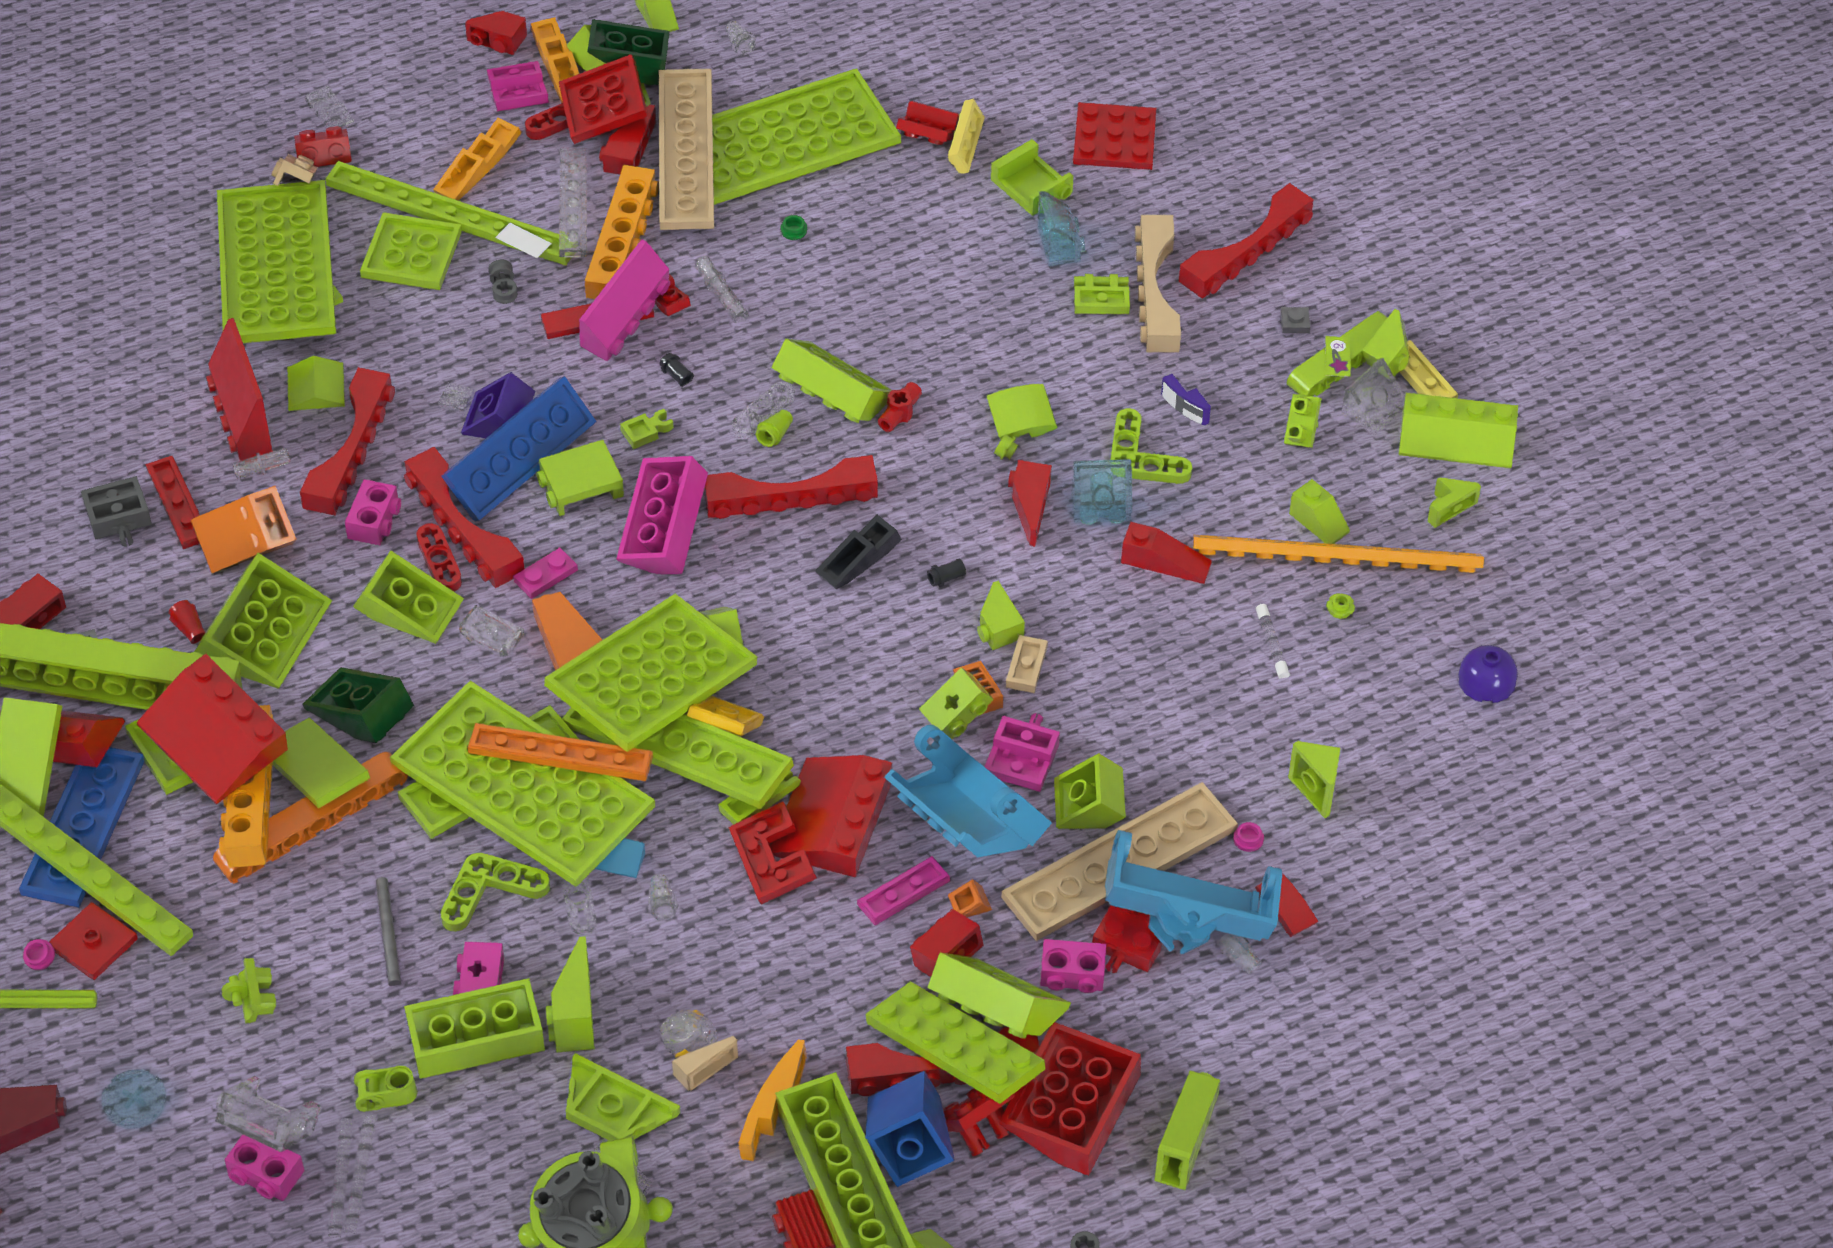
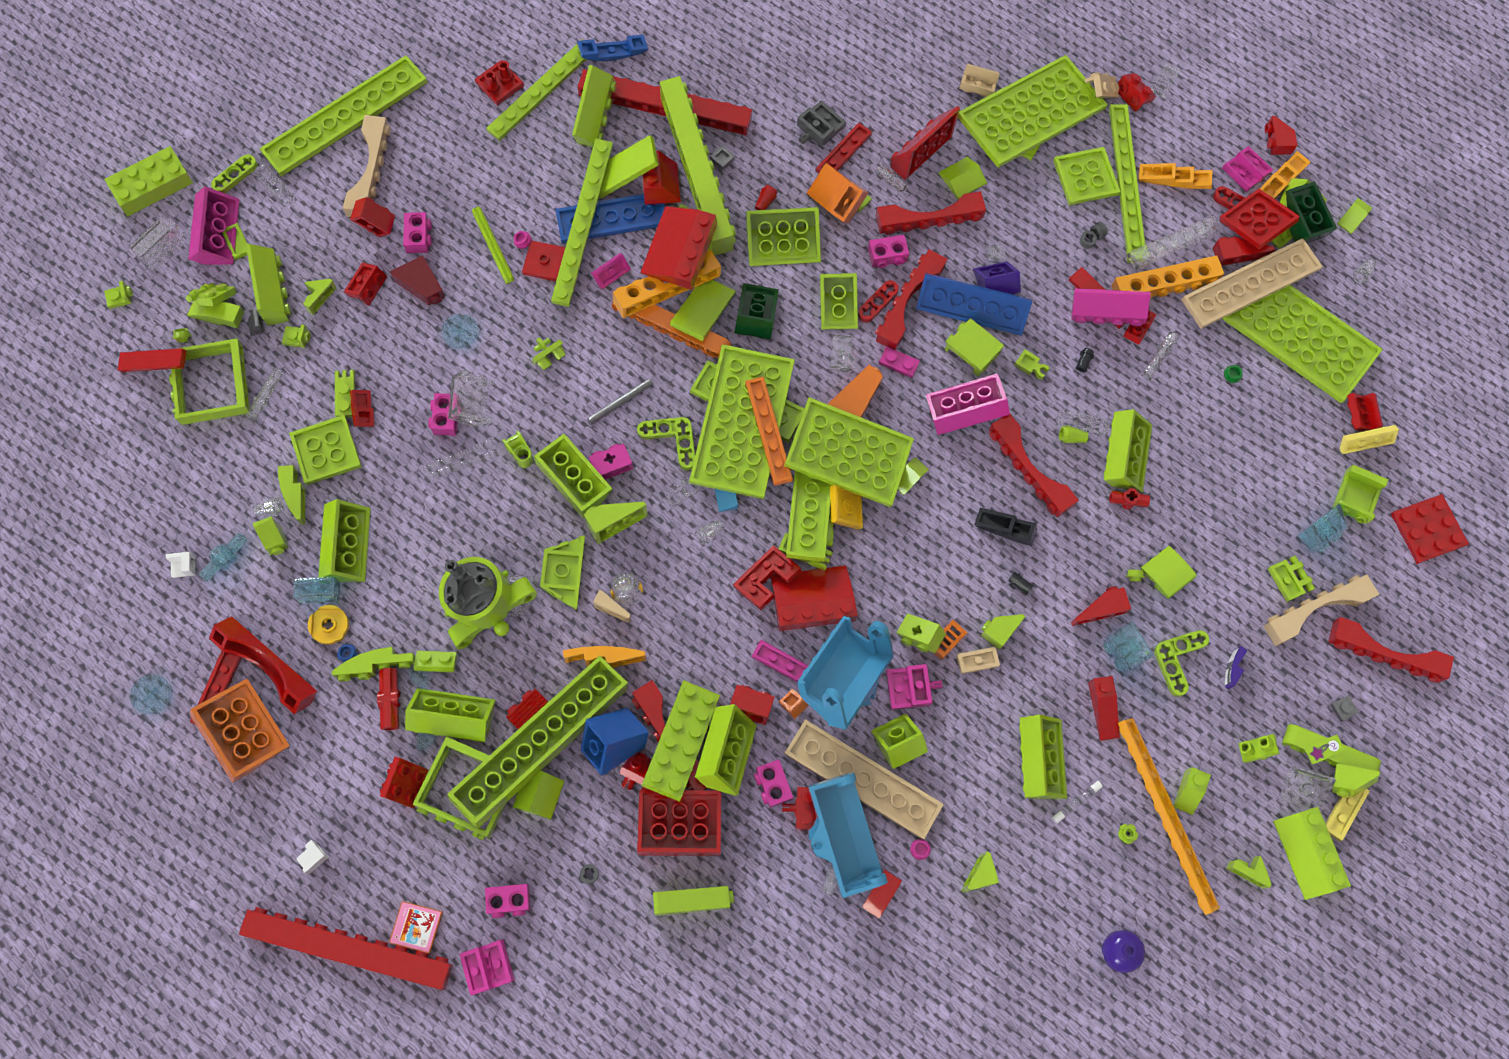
camera: 60 degrees right, 20 degrees up
(172, 857) = (610, 271): none -> dark pink plate
(184, 301) = (979, 80): none -> tan bracket
(523, 240) = (1128, 230): white sticker -> none
(1195, 650) = (1042, 757): none -> lime slope

